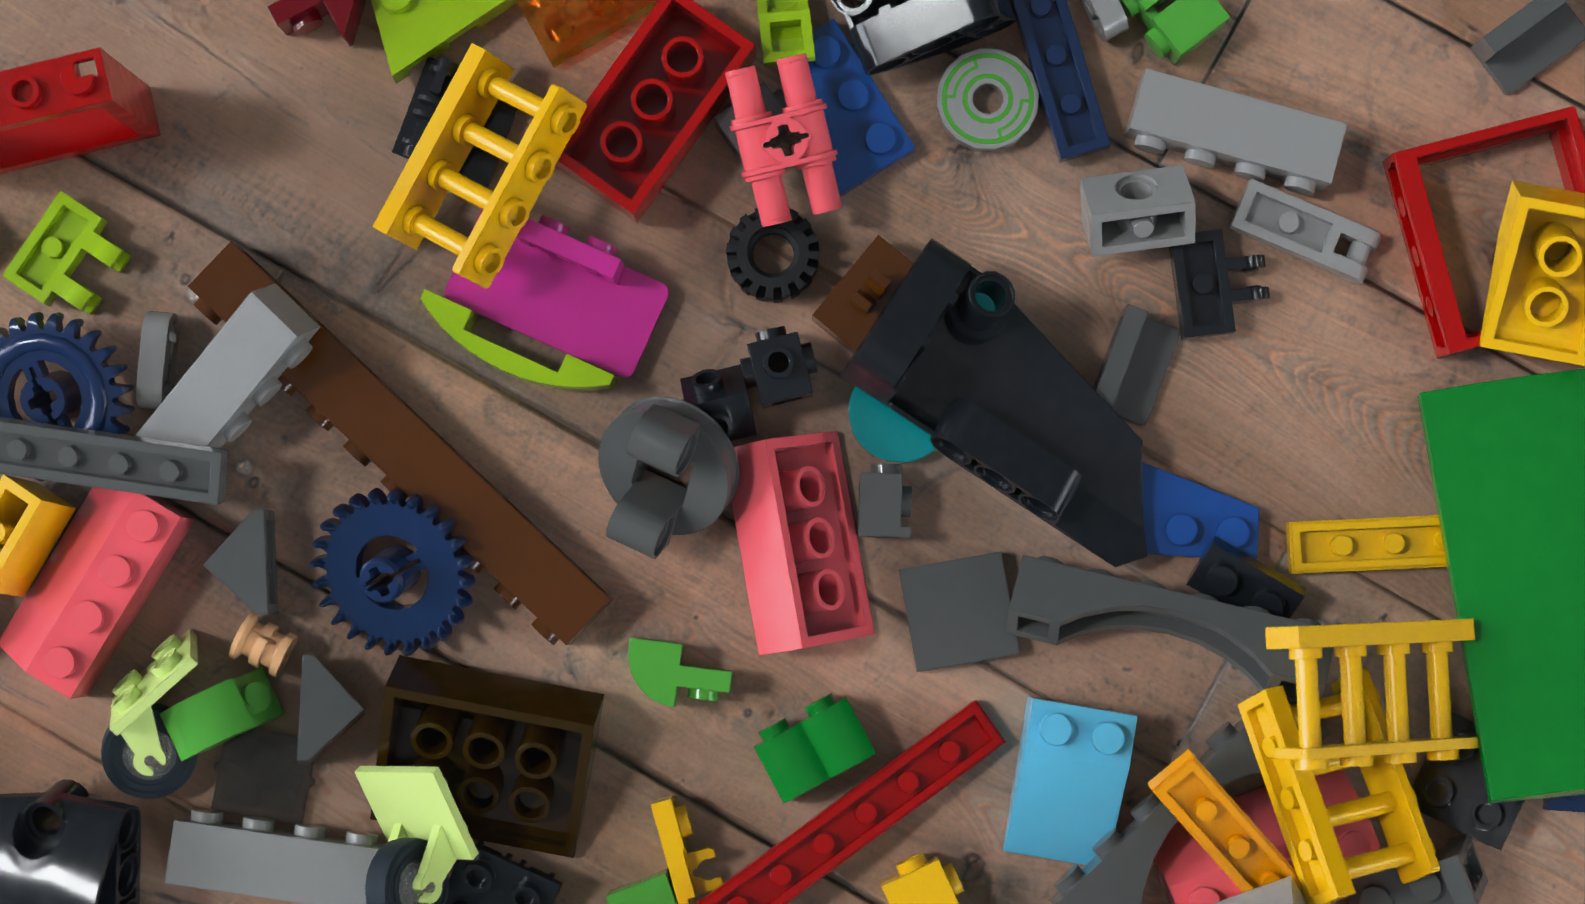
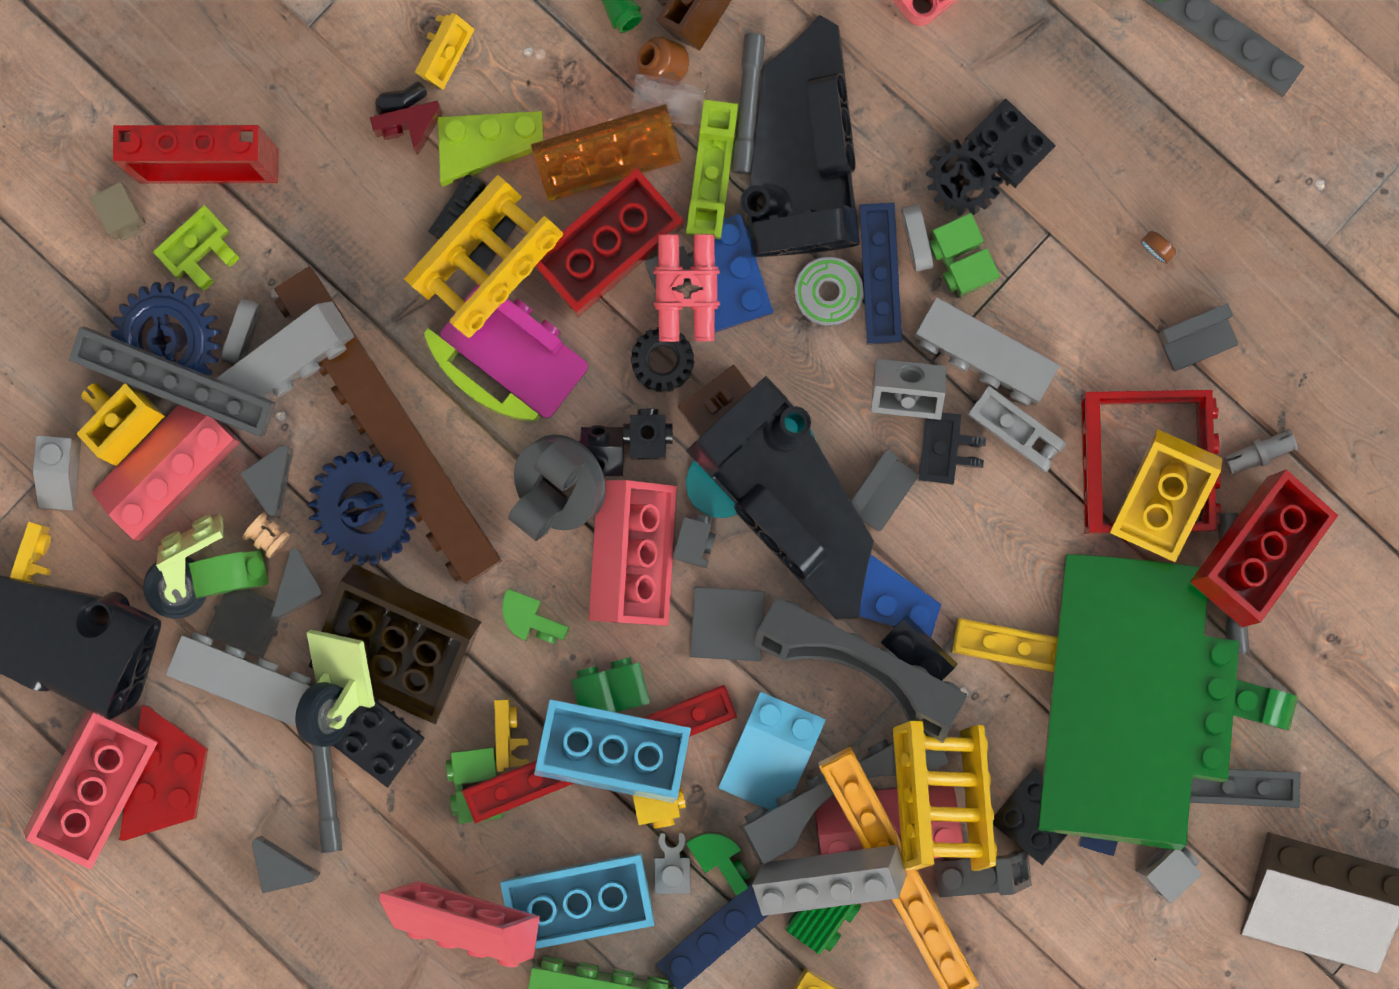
camera: 10 degrees right, 0 degrees up
(841, 839) = (612, 751): none -> medium azure brick
(1349, 645) = (971, 704): yellow fence -> none

